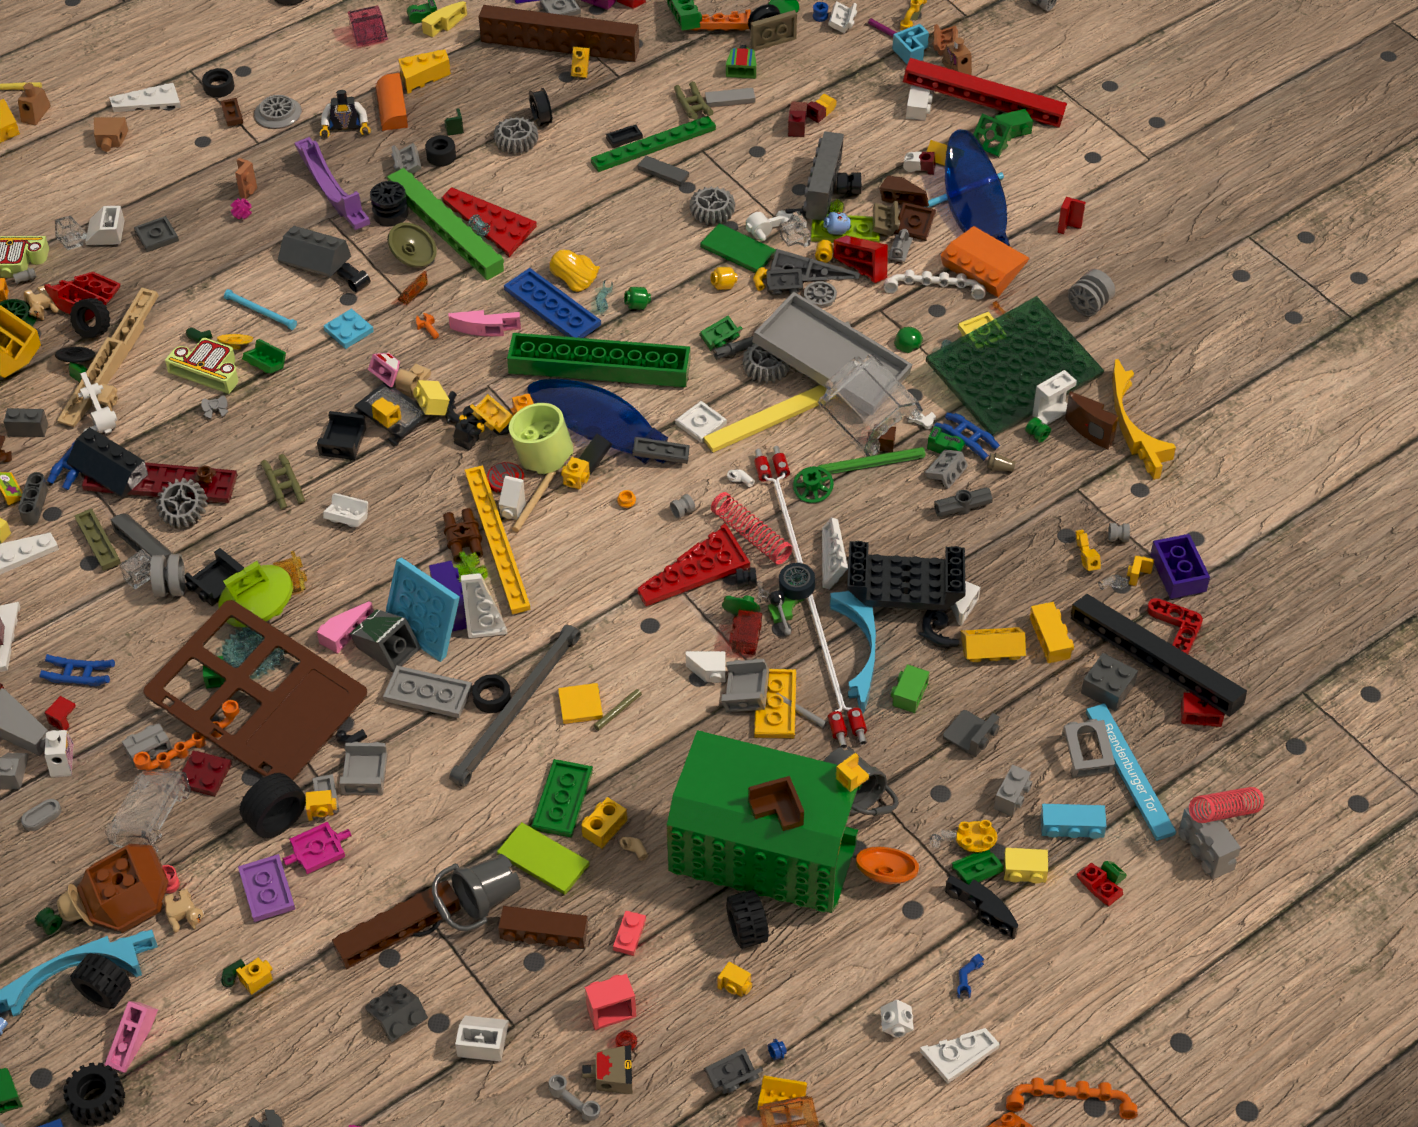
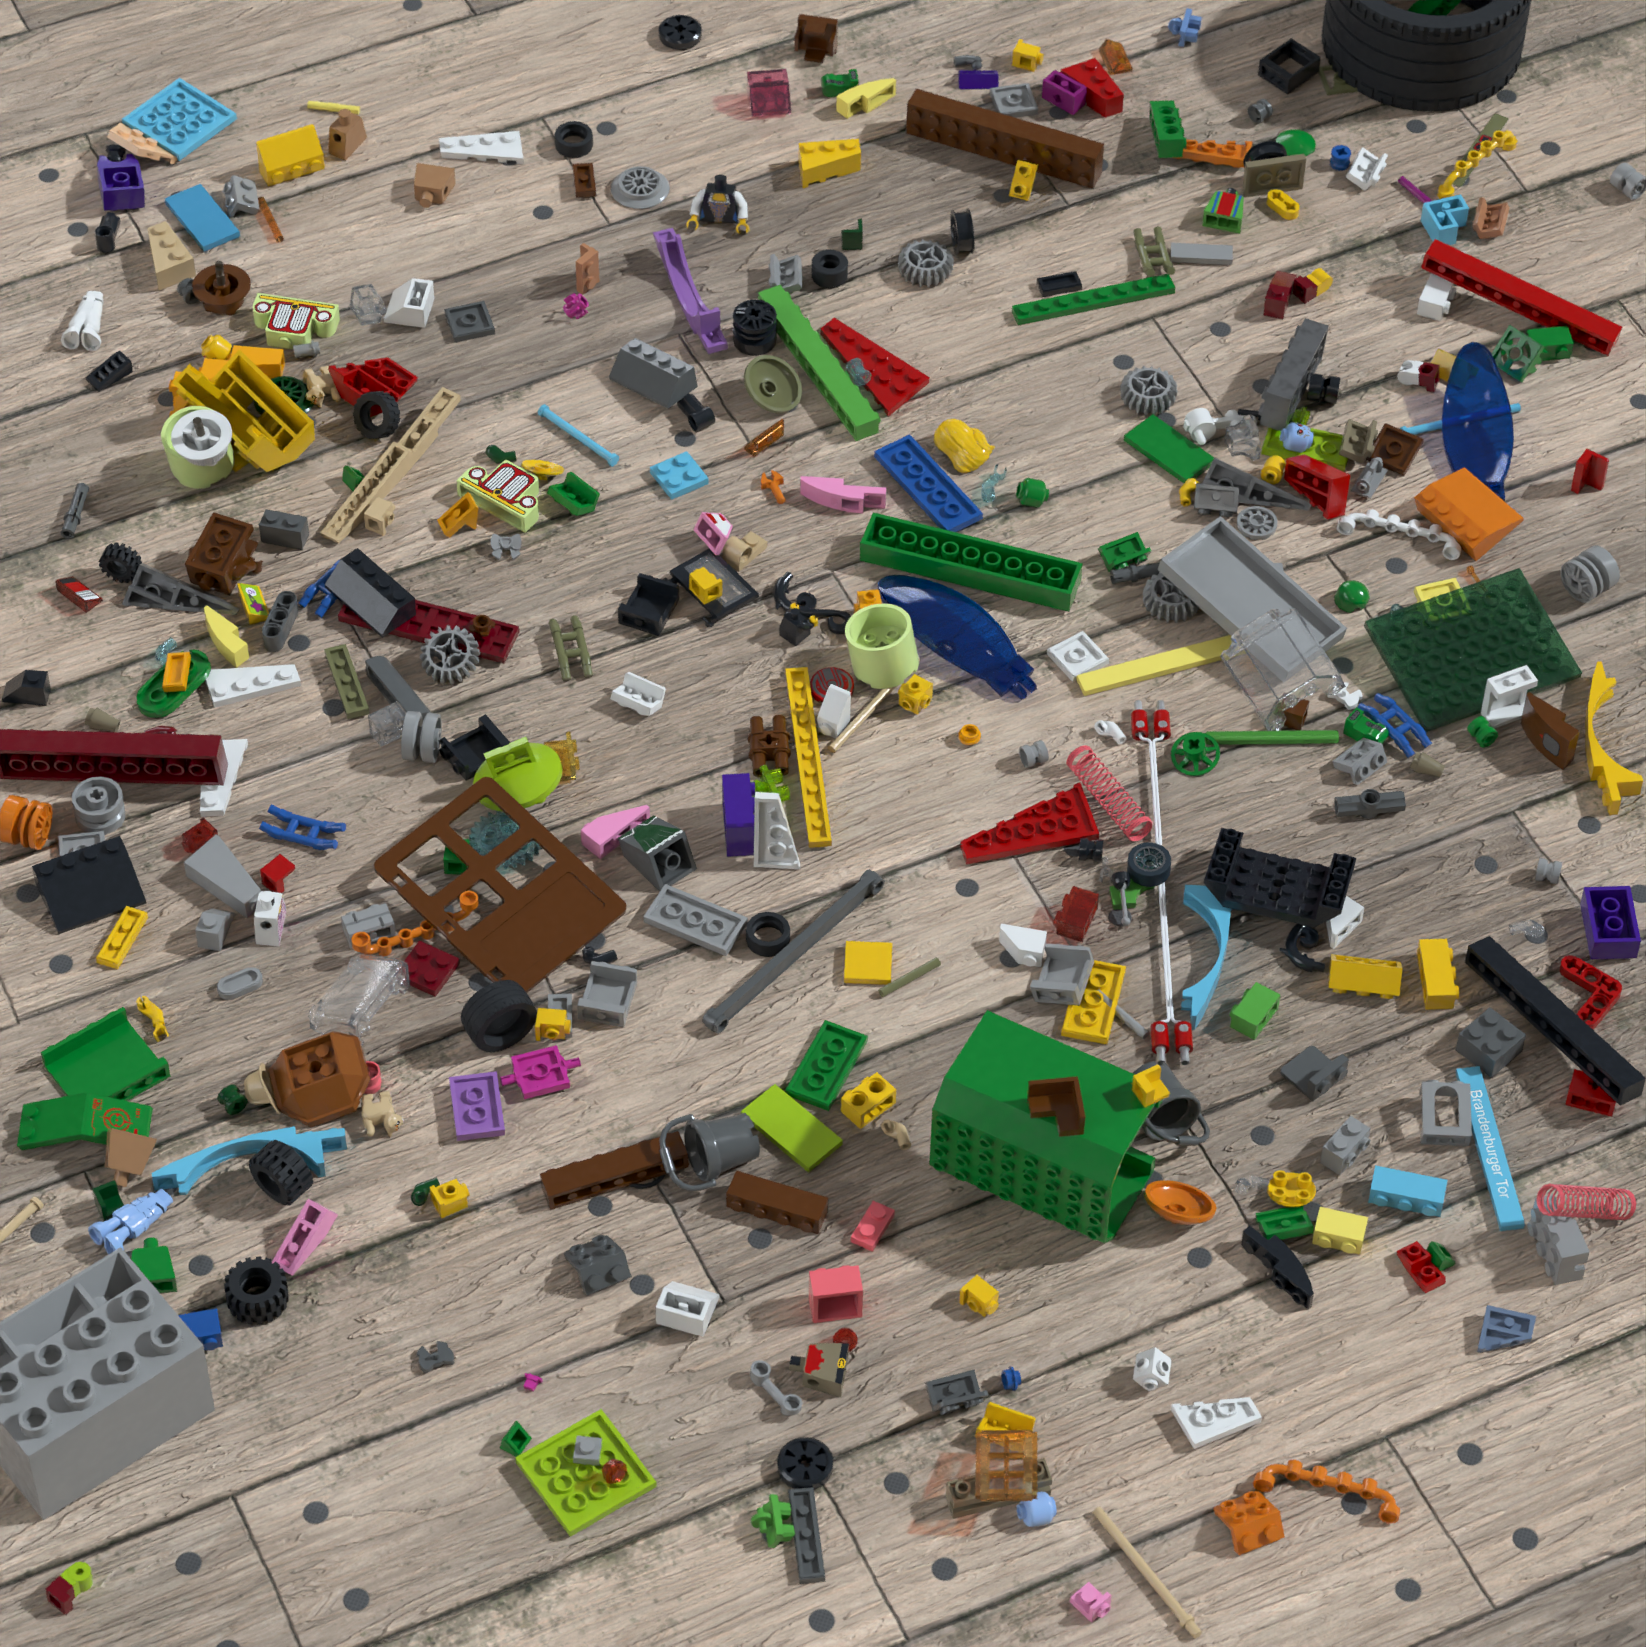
camera: 10 degrees right, 0 degrees up
(75, 354) = (352, 456): black wheel -> none
(102, 418) = (373, 538): white piece -> none
(173, 385) = (461, 513): none -> light orange slope
(391, 102) = (780, 197): orange brick -> none
(425, 605) = (710, 821): medium azure plate -> none
(431, 397) = (762, 575): light yellow brick -> none
(493, 413) = (831, 606): yellow bracket -> none
(595, 451) = (944, 672): black tile -> none
(661, 450) = (1022, 683): dark grey tile -> none
(663, 170) = (1098, 336): dark grey tile -> none
(723, 278) = (1142, 484): yellow head -> none
(733, 605) = (1067, 879): green dish -> none
(747, 919) = (1007, 1232): black tyre -> none
(784, 52) = (1283, 204): none -> yellow beam
(833, 554) = (1199, 839): white wing -> none
(902, 190) = (1387, 408): reddish brown slope -> none
(957, 57) = (1499, 246): medium nougat torso -> none
(975, 963) = (1256, 1326): blue arm -> none
(1089, 557) = (1504, 893): yellow piece -> none
(1140, 564) = (1562, 913): yellow bracket -> none
(1183, 926) = (1505, 1329): none -> sand blue wing

